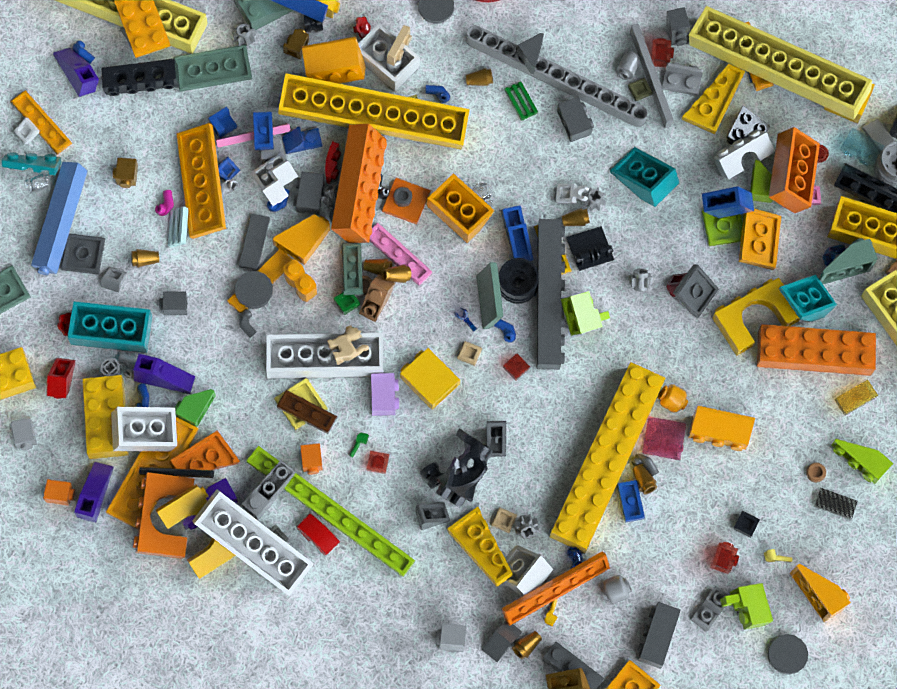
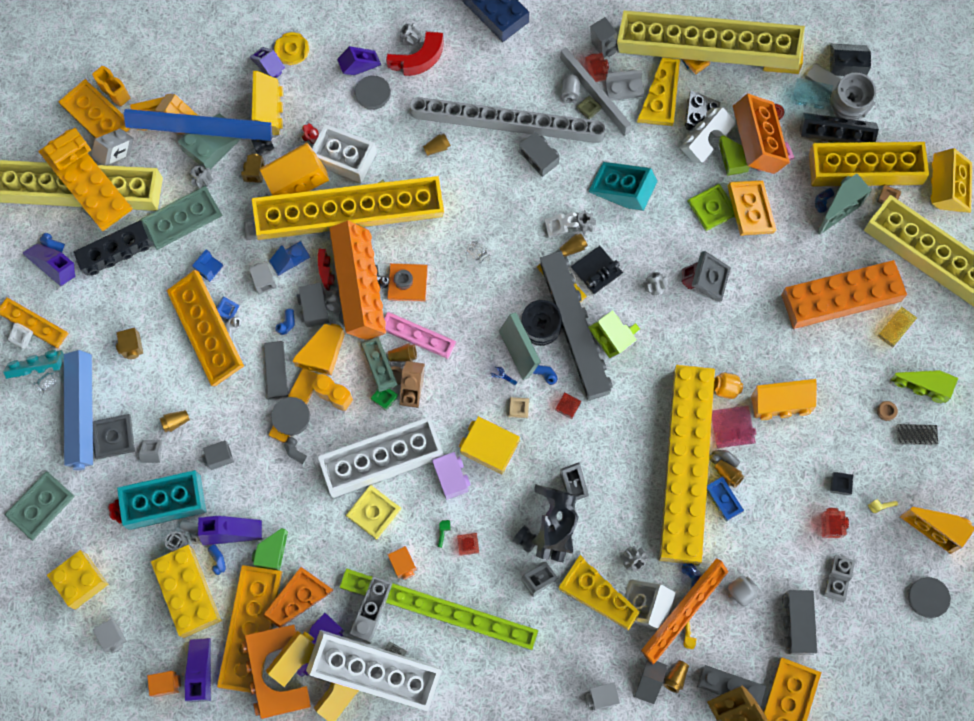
camera: 10 degrees left, 0 degrees up
(60, 378) = (128, 567): red slope -> none
(144, 429) = (227, 592): white brick -> none
(164, 208) = (180, 361): dark pink arm -> none
(178, 227) = (197, 379): light aqua tile -> none
(178, 472) = (275, 624): black bar -> none
(247, 136) = (240, 268): bright pink tile -> none
(263, 131) = (248, 260): blue plate -> none
(273, 176) = (273, 300): white brick -> none
(306, 412) = (382, 518): reddish brown tile -> none
(318, 533) = (434, 636): red slope -> none
(344, 345) = (398, 442): tan animal -> none
(396, 51) = (352, 132): tan plate -> none
(397, 274) = (424, 354): pearl gold cone -> none
(439, 91) = (404, 170): blue arm -> none
(459, 208) = (461, 272): light orange slope -> none
(504, 520) = (610, 559): tan tile -> none
(515, 88) = (467, 148): green tile -> none
(517, 233) = (523, 278): blue slope -> none
(530, 50) = (475, 104): dark grey slope -> none
(727, 202) = (712, 183): blue brick -> none
(730, 317) = (782, 257): yellow arch -> none
(751, 604) = (878, 562): lime hinge -> none
(808, 298) = (820, 247): teal slope -> none

